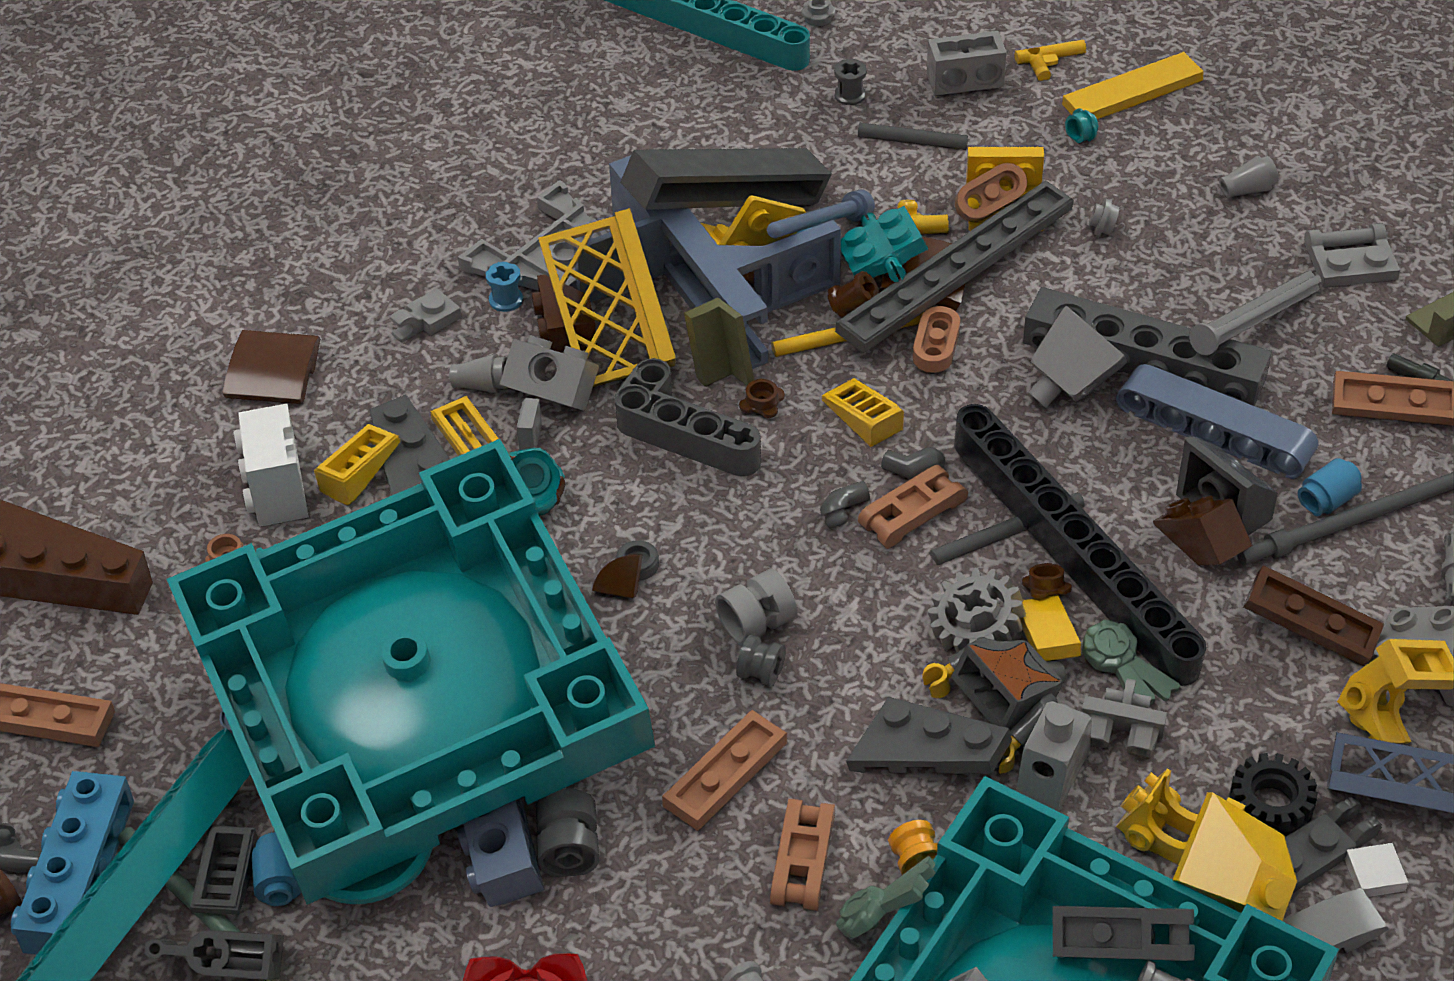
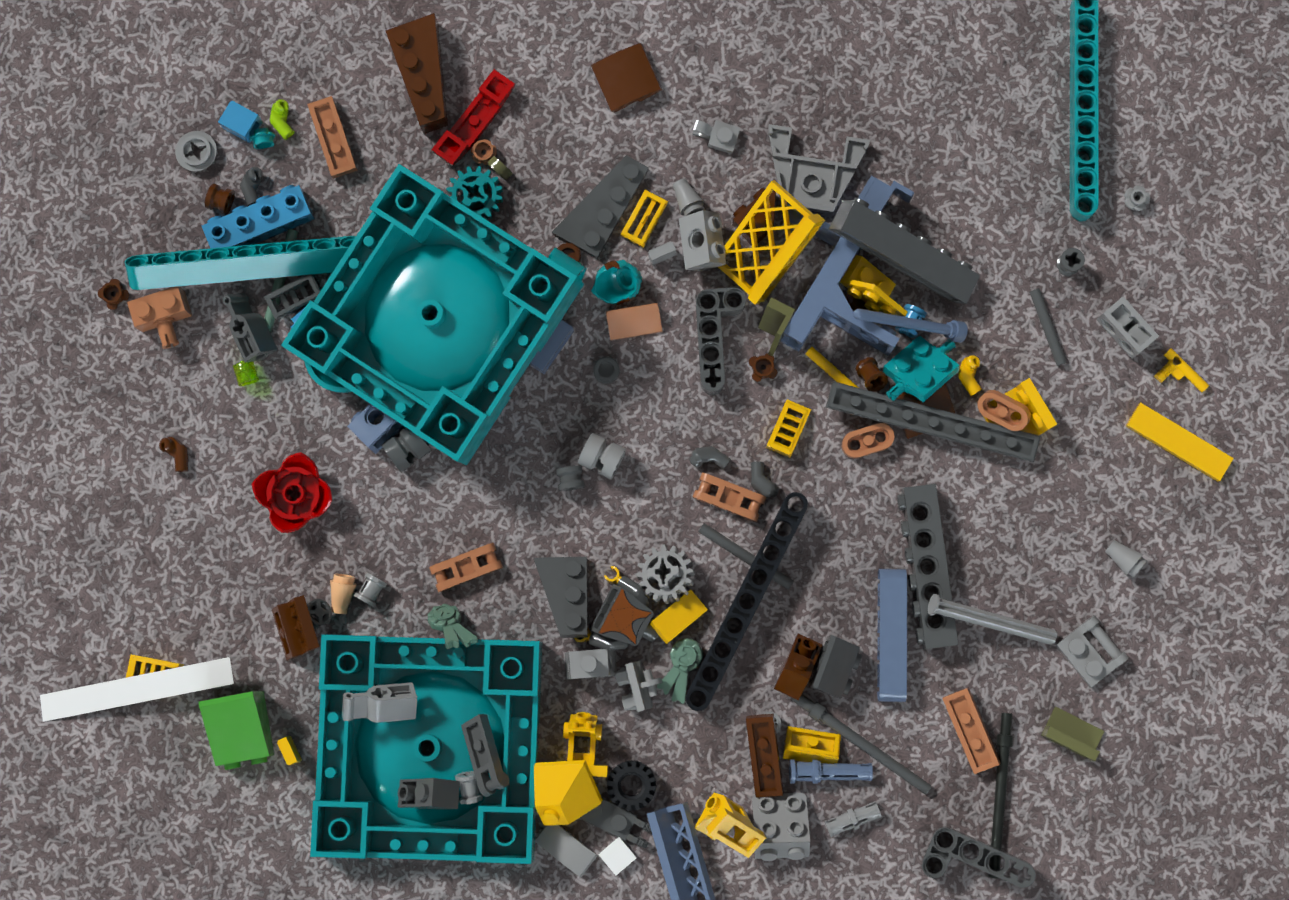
camera: 65 degrees right, 35 degrees up
(167, 525) = (475, 119): none -> red slope
(264, 535) = (499, 168): none -> olive tile
(270, 465) = (552, 132): white wedge -> none
(345, 473) = (582, 167): yellow slope -> none
(504, 279) = (763, 174): dark azure bush -> none
(593, 499) = (634, 321): none -> nougat slope
(620, 576) = (585, 370): reddish brown tile -> none
(724, 770) = (492, 500): nougat plate -> none
(913, 843) = (496, 623): light orange wheel -> none
(1046, 581) = (716, 593): reddish brown plate -> none
(1073, 360) = (884, 534): light grey torso -> none
(1081, 123) = (1117, 429): teal plate -> none
(1104, 217) = (1033, 486): light grey plate -> none
(1330, 487) = (875, 722): dark azure brick -> none
(1333, 566) = (811, 745): none -> yellow slope
(1368, 576) = (817, 771): none -> sand blue pin

